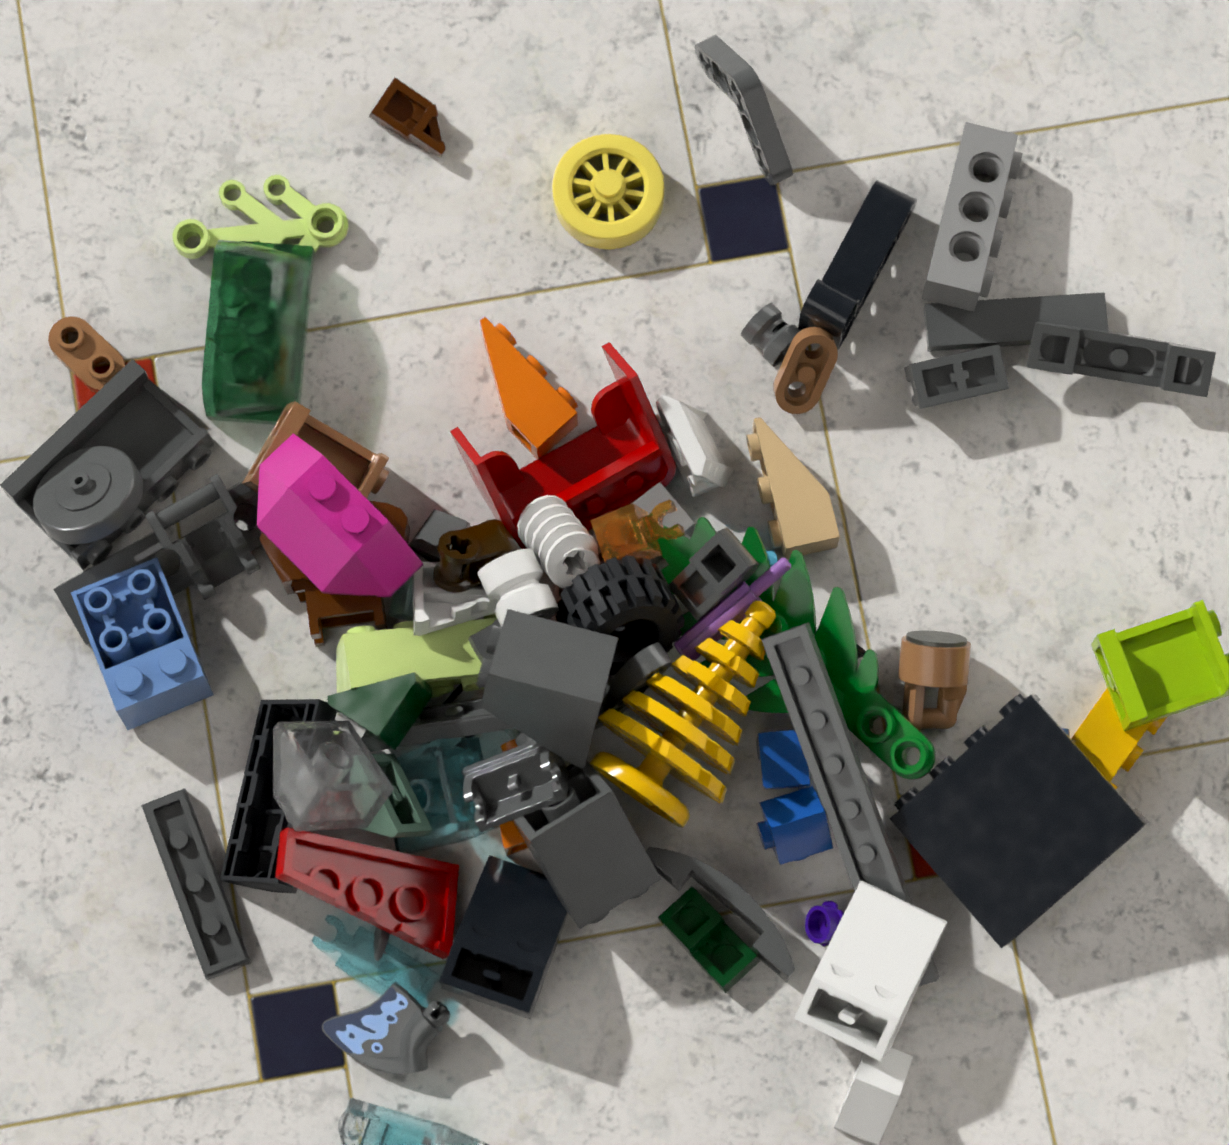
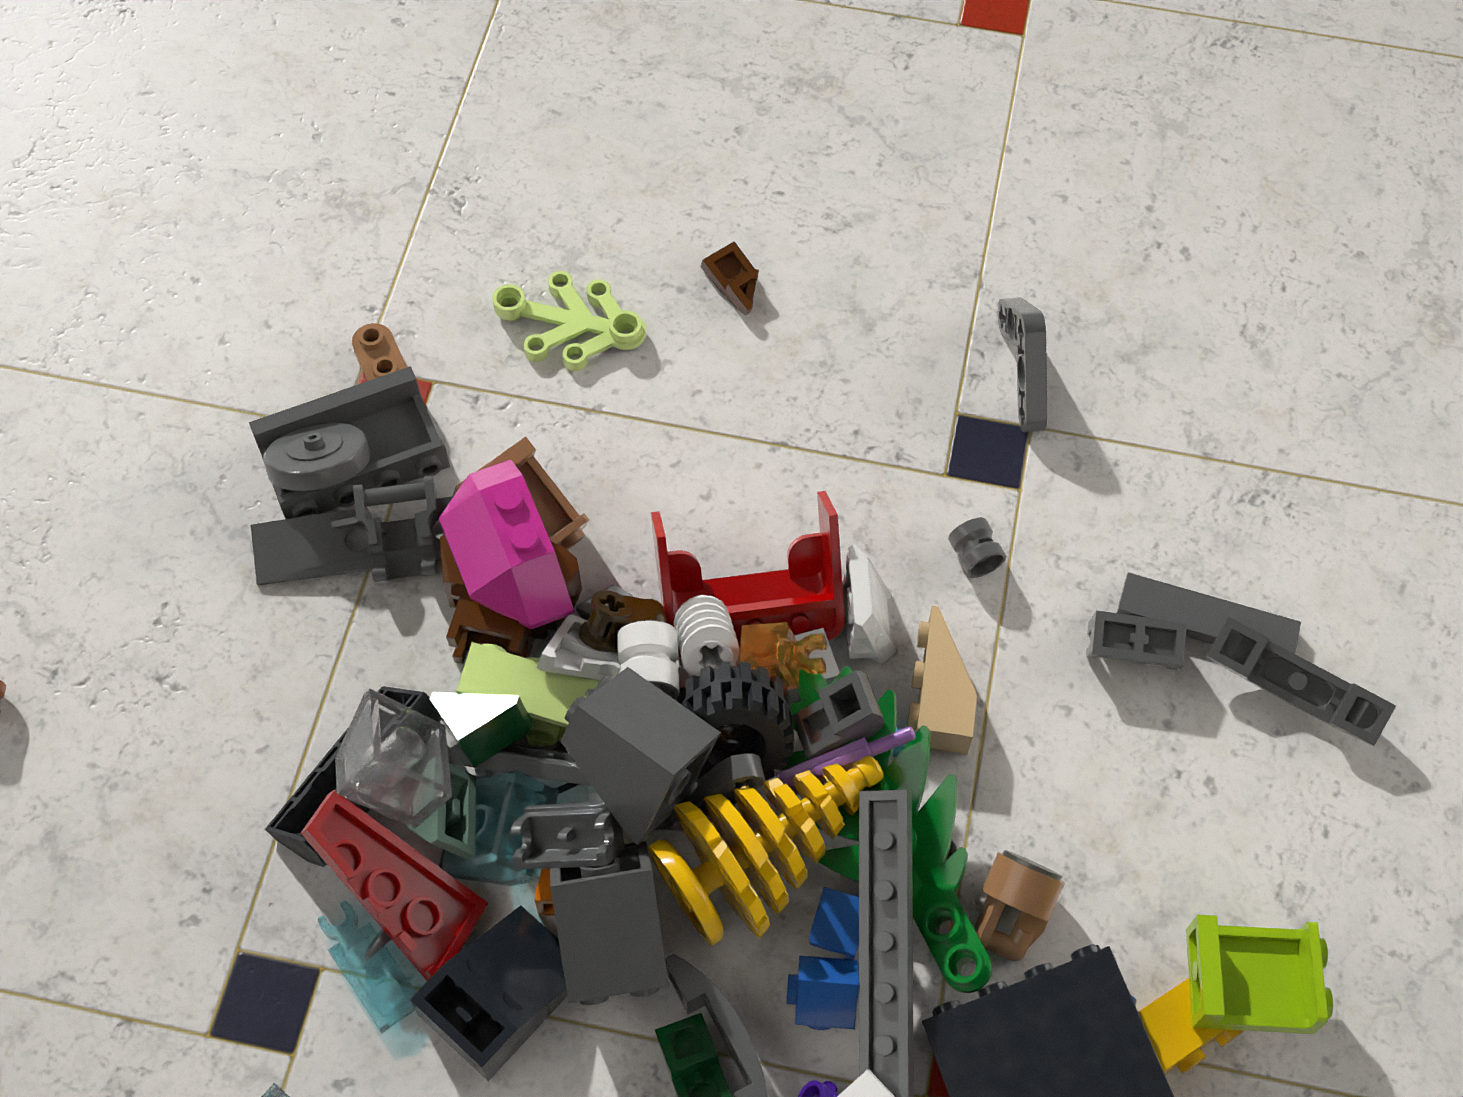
camera: 20 degrees right, 15 degrees down
(141, 644) = (299, 599): medium blue slope -> none
(196, 884) = (240, 828): dark grey tile -> none
(256, 330) = (523, 381): clear green windscreen -> none
(389, 1032) = (347, 1035): dark grey arm -> none
(529, 404) = (735, 527): orange slope -> none
(608, 192) = (875, 397): light yellow wheel -> none
(807, 367) = (996, 583): medium nougat plate -> none
(858, 262) = (1046, 539): black beam -> none
(948, 278) = (1194, 514): light grey brick -> none

